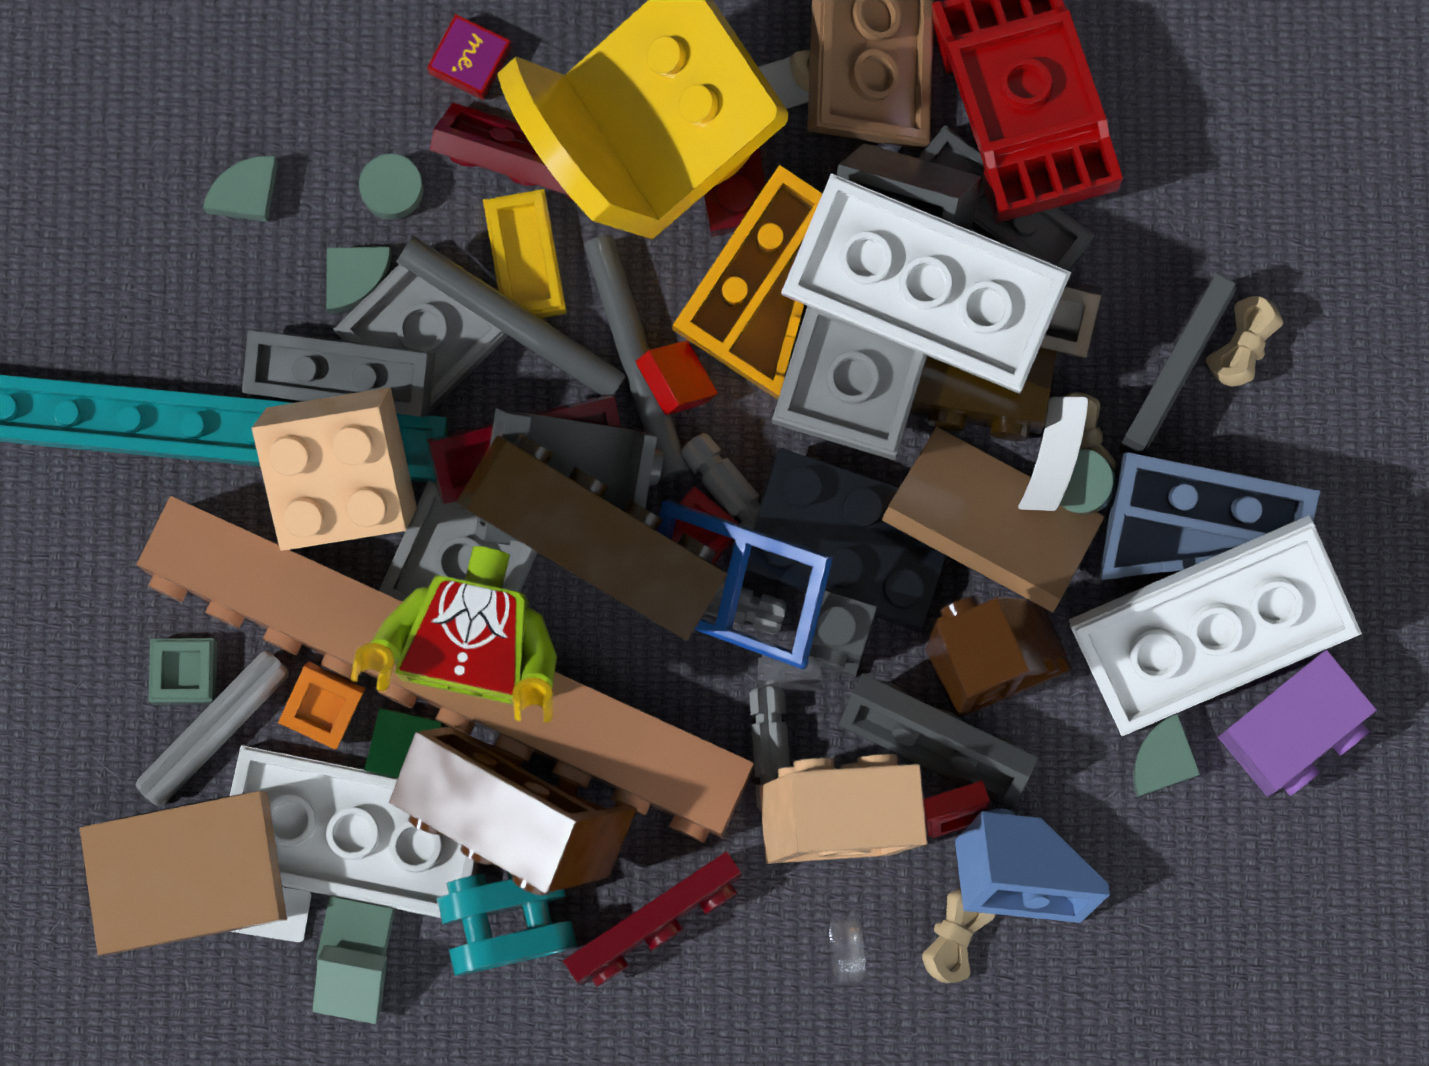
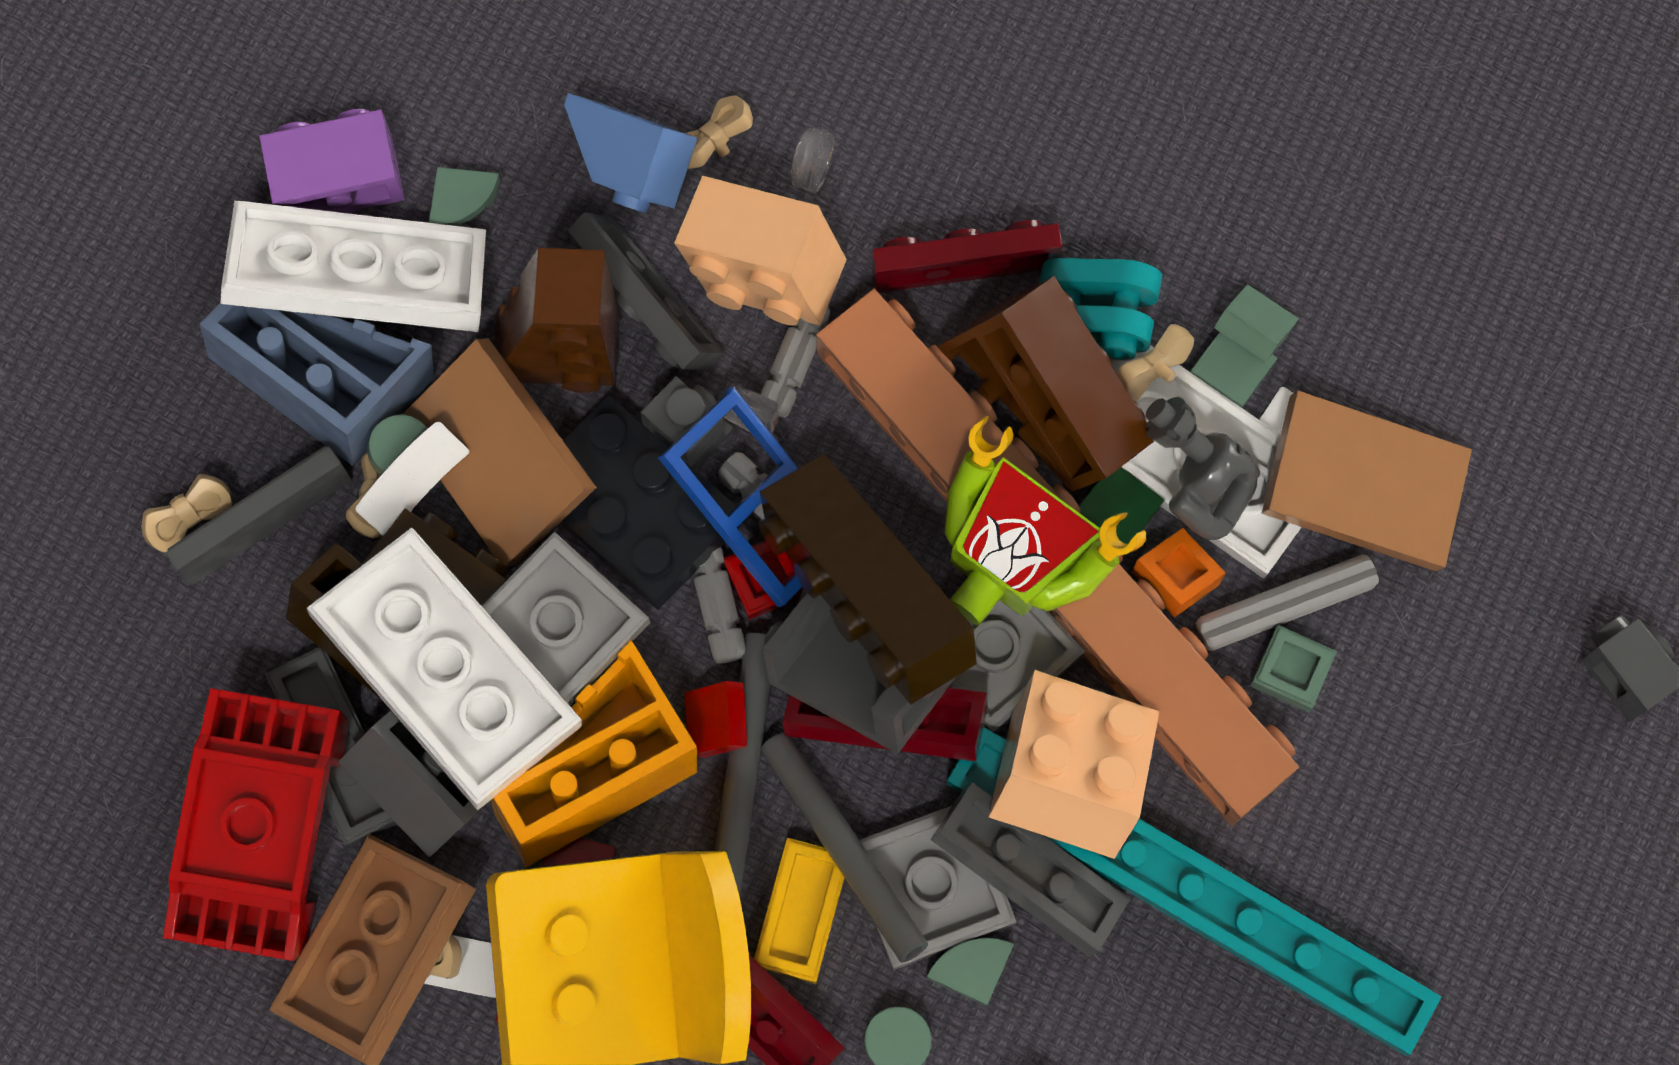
camera: 160 degrees left, 5 degrees down
(327, 801) = (1206, 472): none -> dark grey piece
(416, 910) = (1169, 351): none -> tan piece
(954, 809) = (653, 226): red tile -> none

